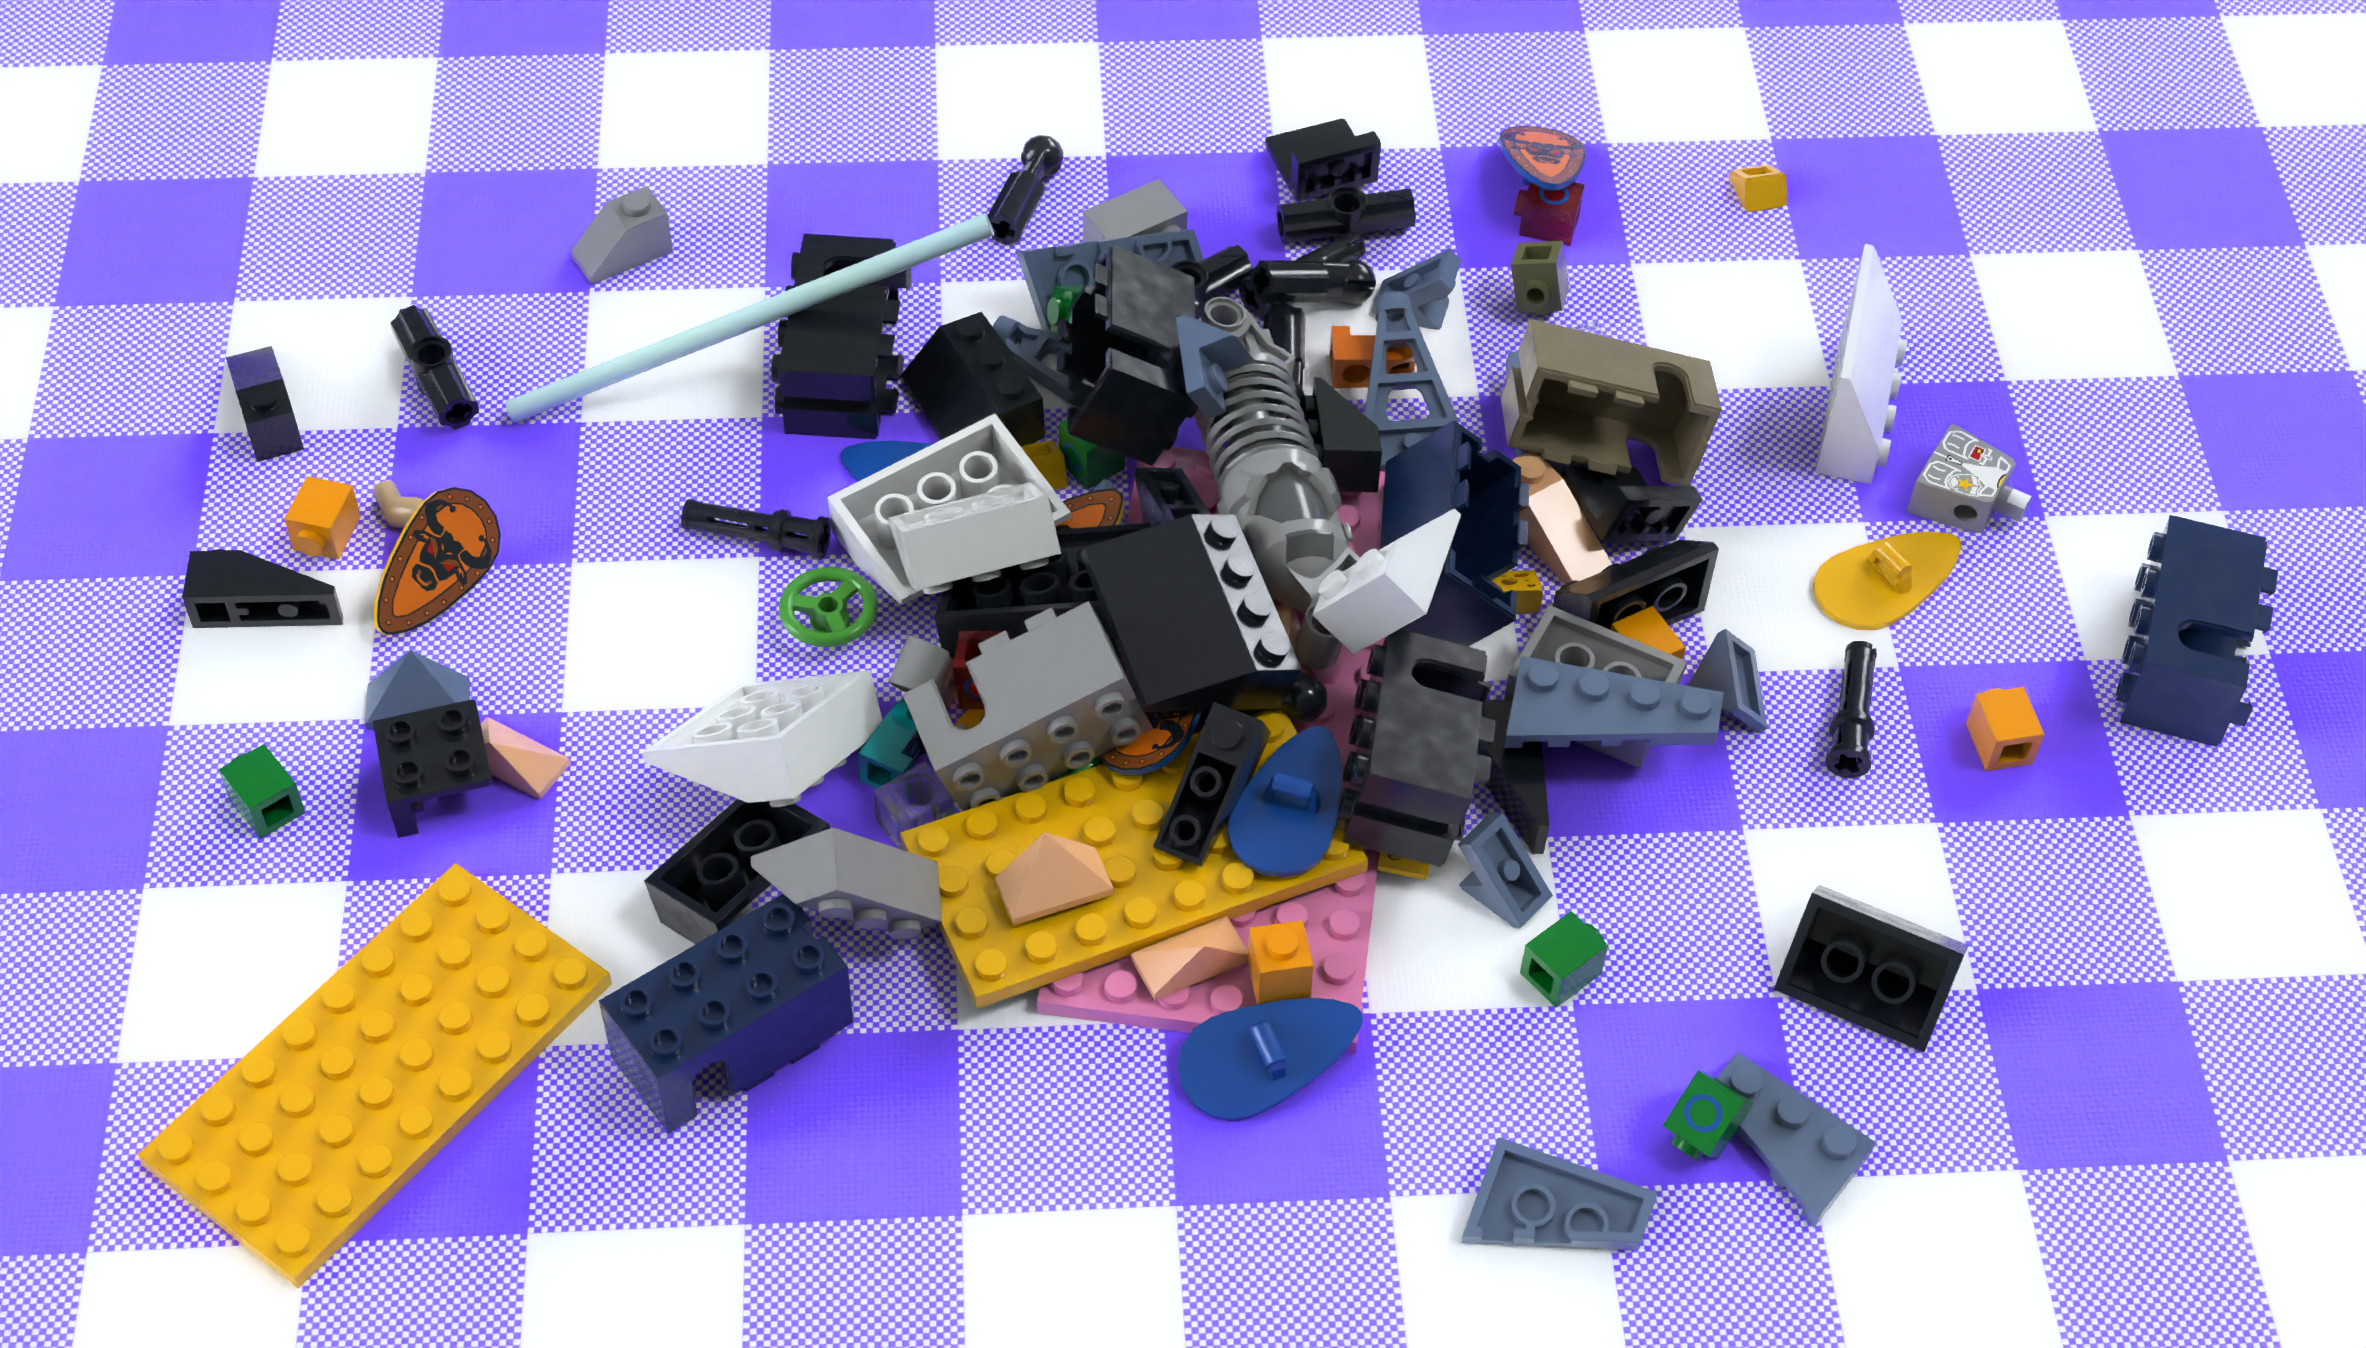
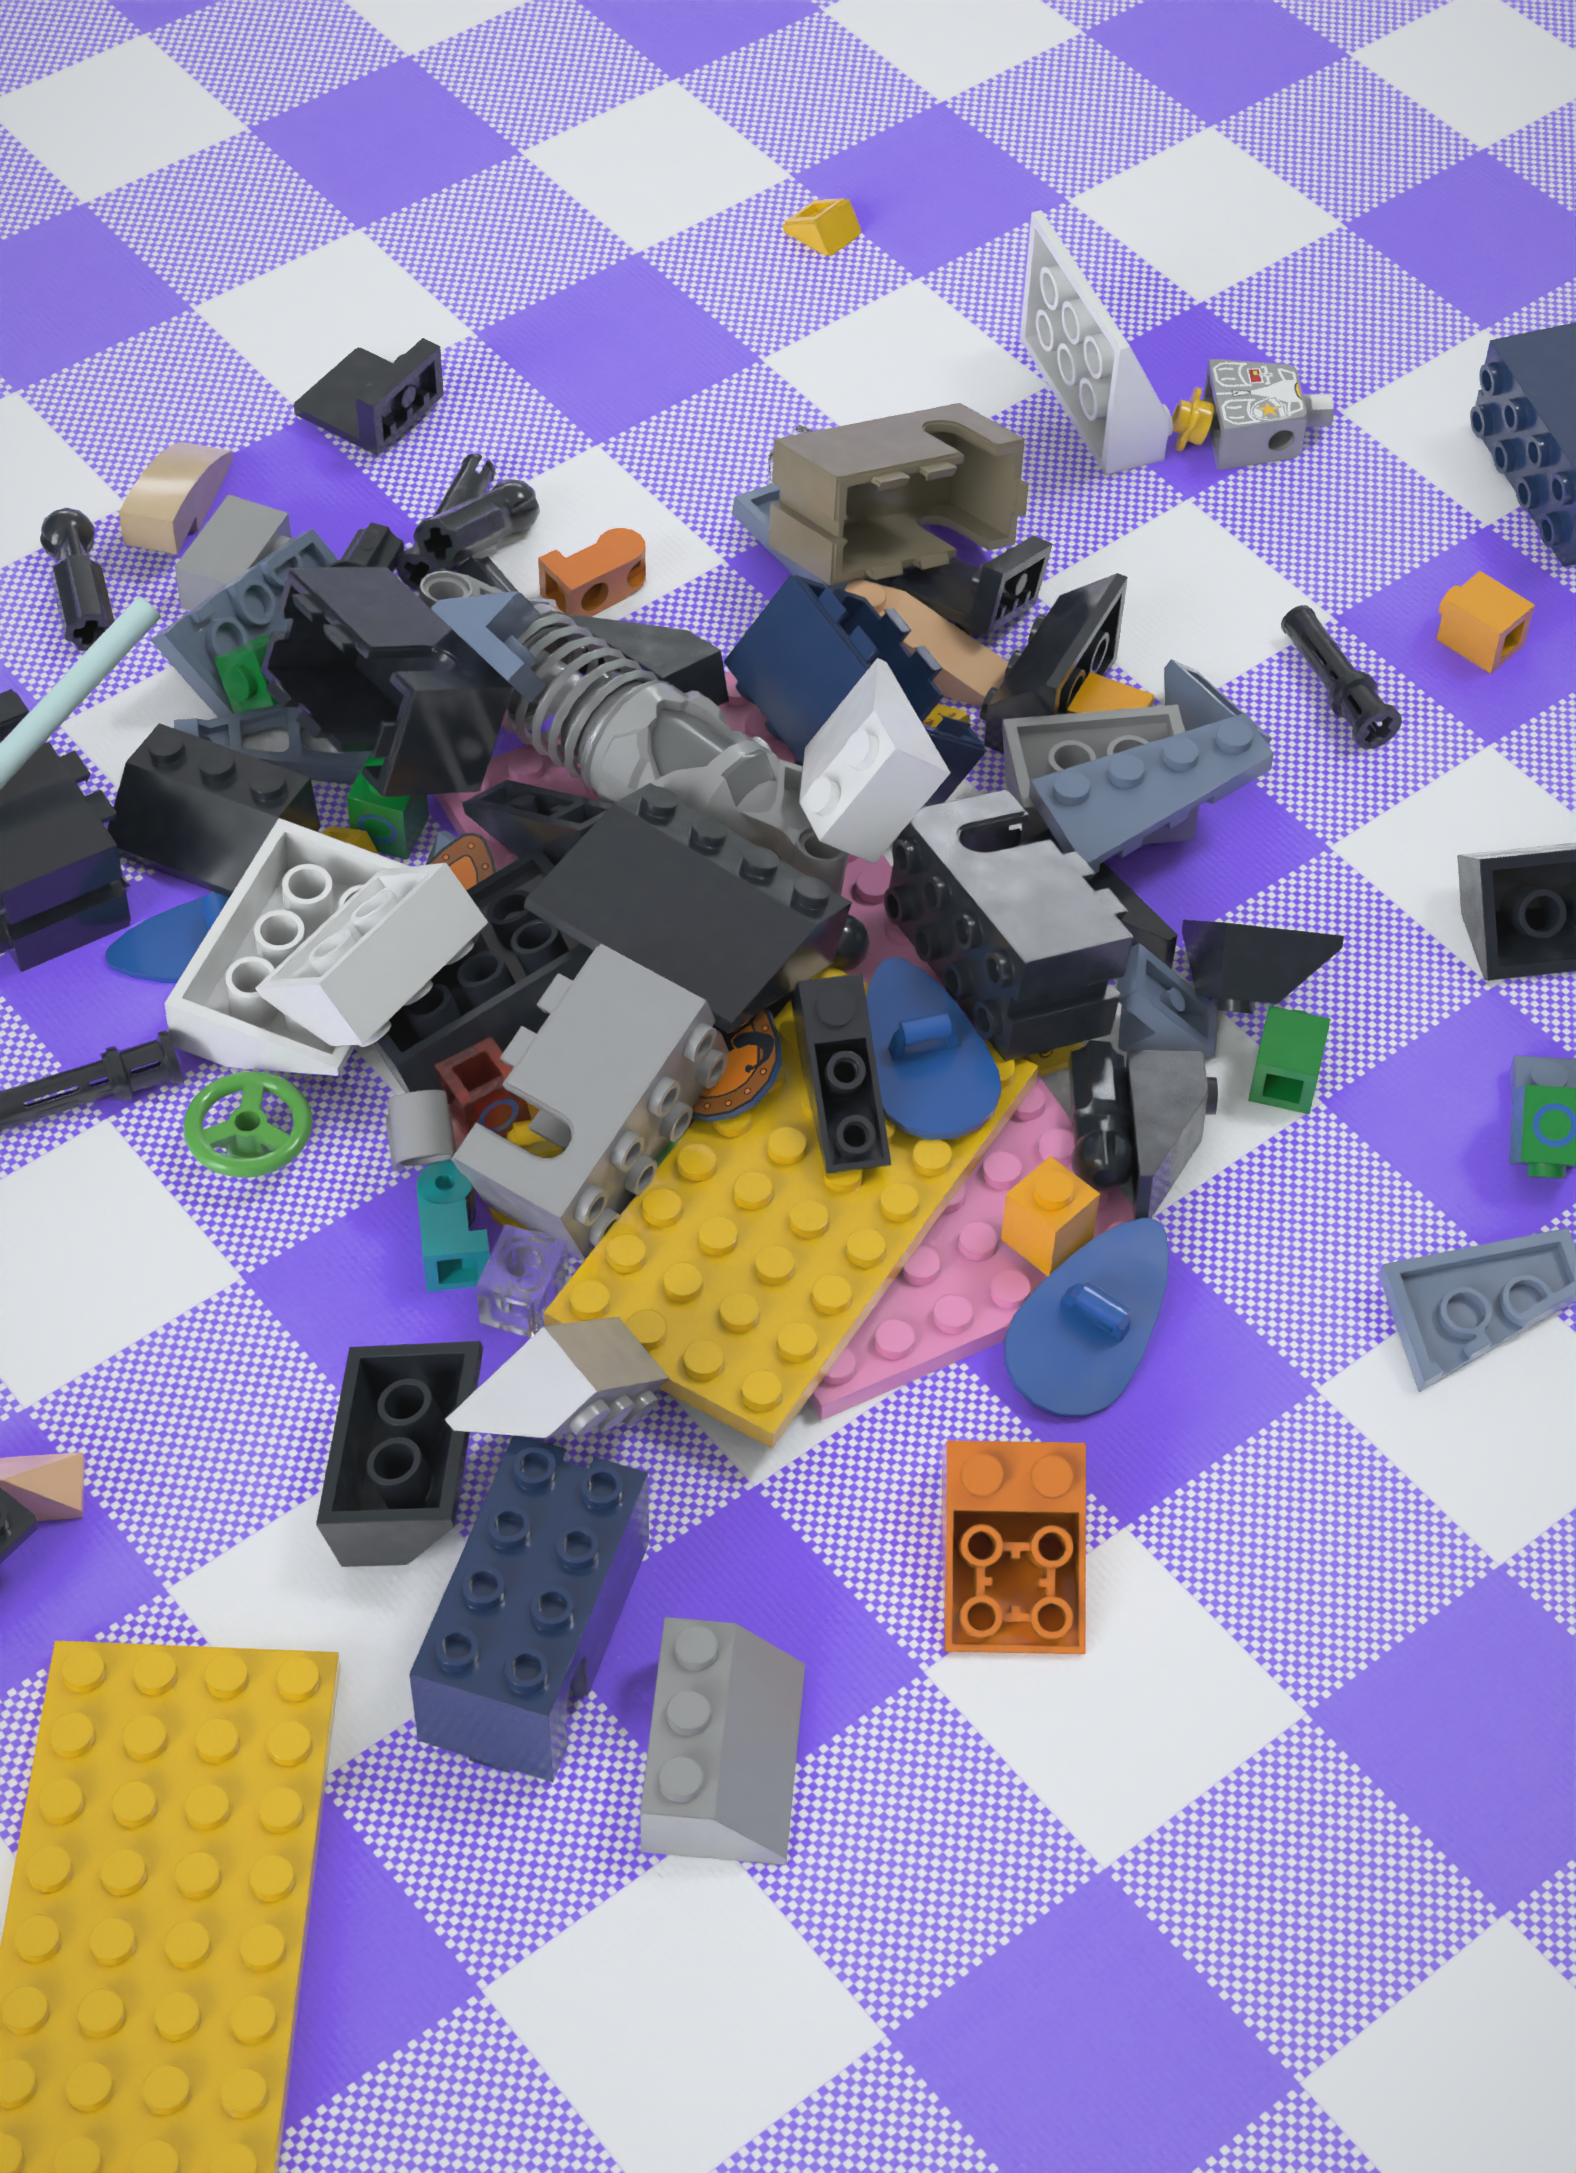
camera: 35 degrees left, 0 degrees up
(772, 736) = (321, 1289): white slope -> none
(785, 1174) = (721, 1745): none -> light grey slope
(1052, 878) = (757, 1266): light nougat slope -> none
(1080, 1168) = (1014, 1546): none -> orange slope
(1132, 161) = (173, 496): none -> tan slope
(1190, 957) = (943, 1267): light nougat slope -> none
(1343, 211) = (445, 441): black piece -> none
(1385, 919) = (1100, 1116): none -> black piece
(1397, 329) = (729, 607): sand blue plate -> none
(1426, 950) = (1166, 1119): none -> slope
(1427, 286) = (585, 484): sand blue slope -> none
(1540, 277) = (703, 408): olive brick -> none
(1543, 155) = (600, 290): shield -> none
(1549, 213) = (648, 339): brick -> none
(1591, 873) = (1252, 962): none -> black slope
(1884, 578) = (1252, 542): yellow shield -> none
(1908, 463) = (1192, 419): none -> yellow plate

